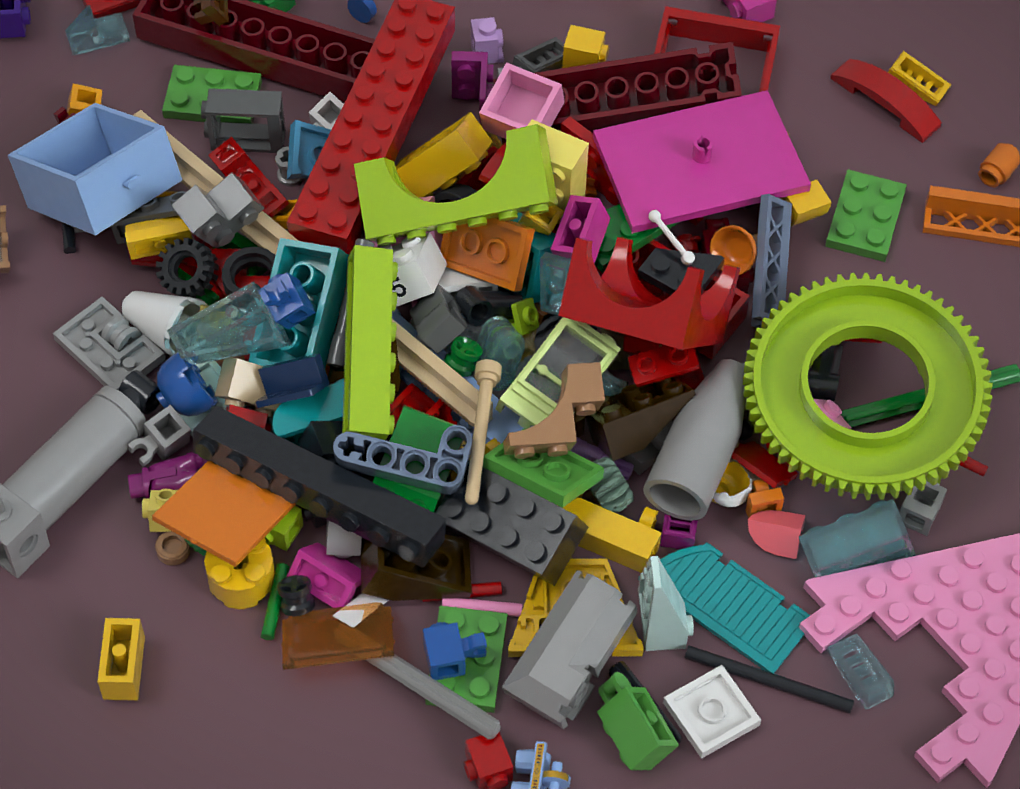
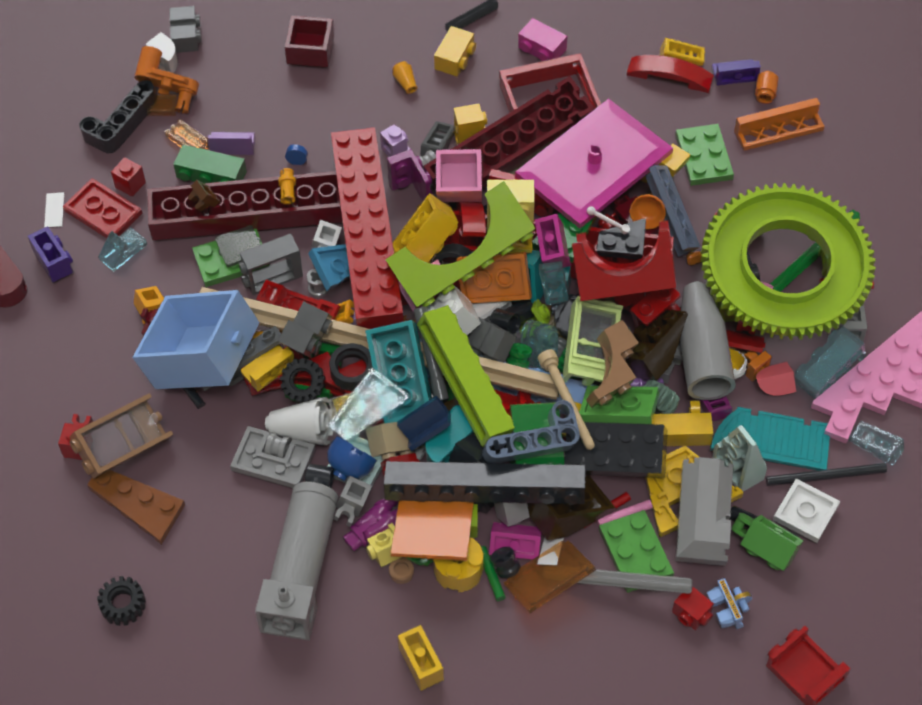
camera: 25 degrees left, 0 degrees up
(224, 77) = (235, 242): none -> clear smoke piece
(286, 300) = (395, 369): blue brick -> none
(317, 32) = (287, 182): none -> light orange pin
(447, 651) = (628, 550): blue brick -> none
(971, 130) = (736, 72): none -> dark purple panel

